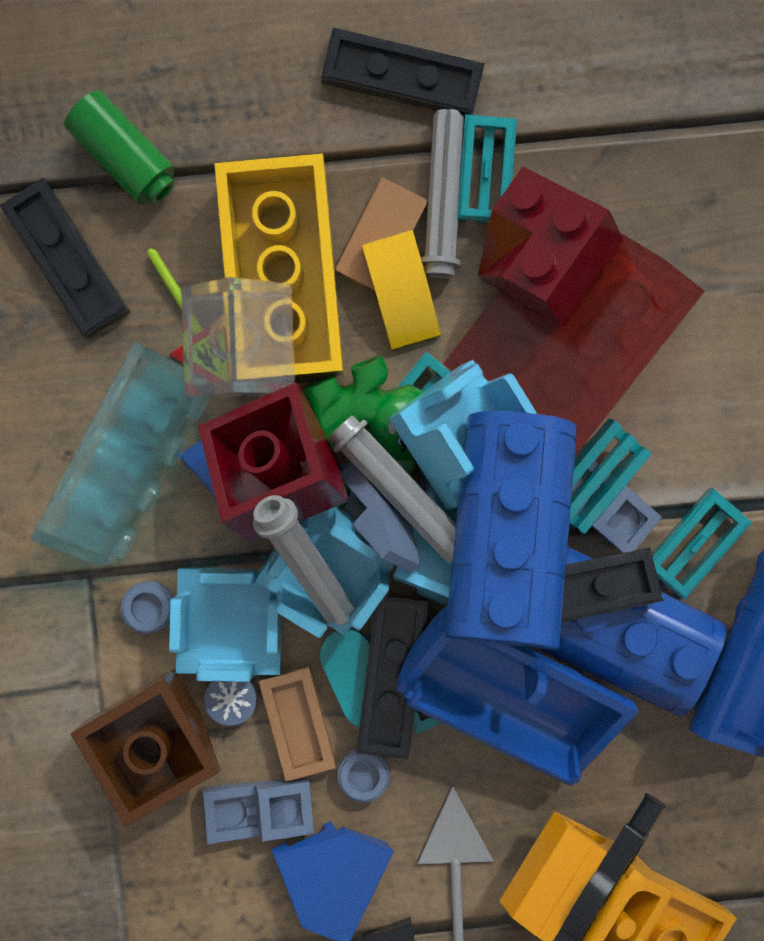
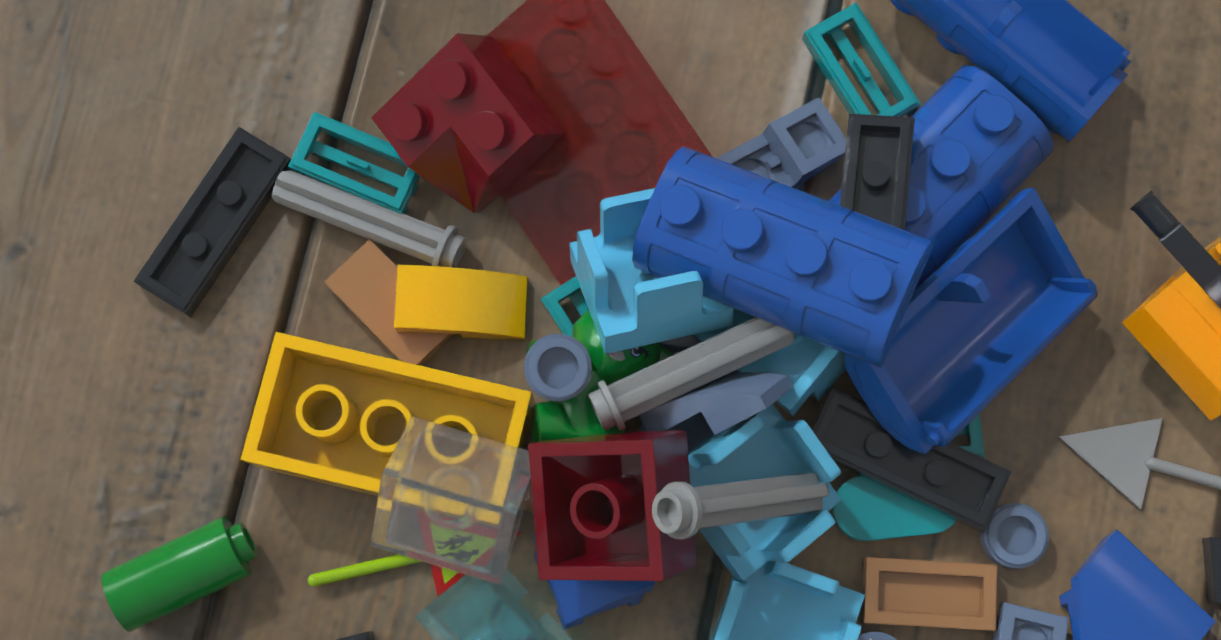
camera: 70 degrees left, 10 degrees down
(365, 384) = (557, 367): none -> sand blue tile
(617, 480) = (754, 123): teal tile -> none

